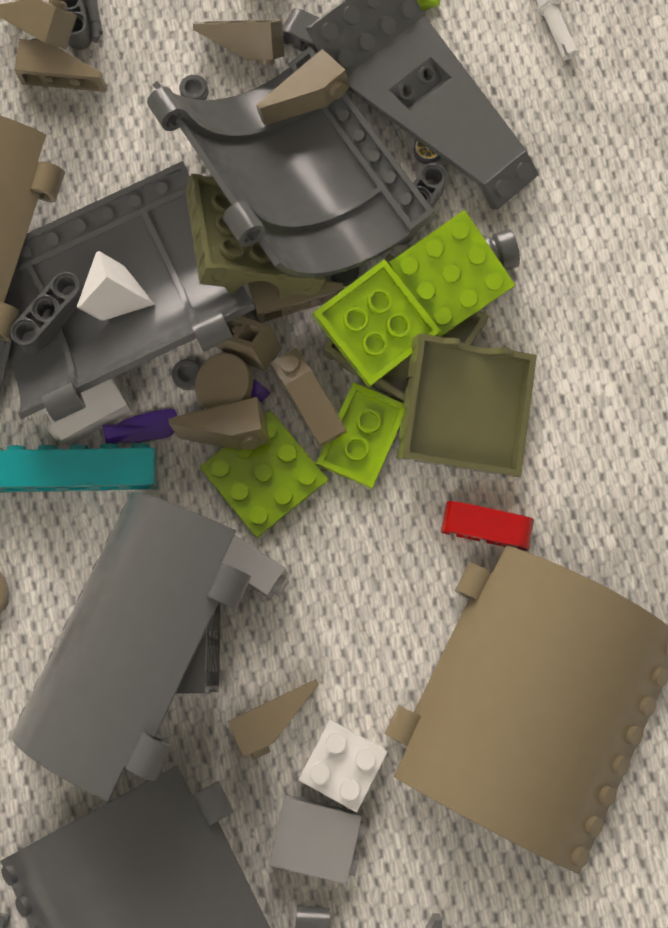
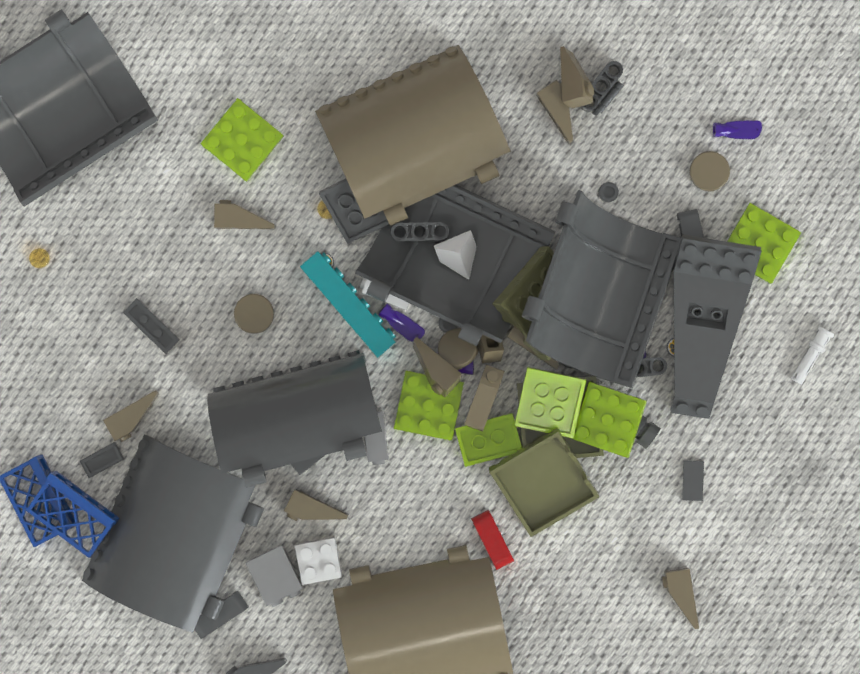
camera: 55 degrees right, 10 degrees up
(247, 38) = (658, 197): dark tan slope -> none
(306, 90) = (654, 263): dark tan slope -> none
(596, 246) = (693, 480): none -> dark grey tile

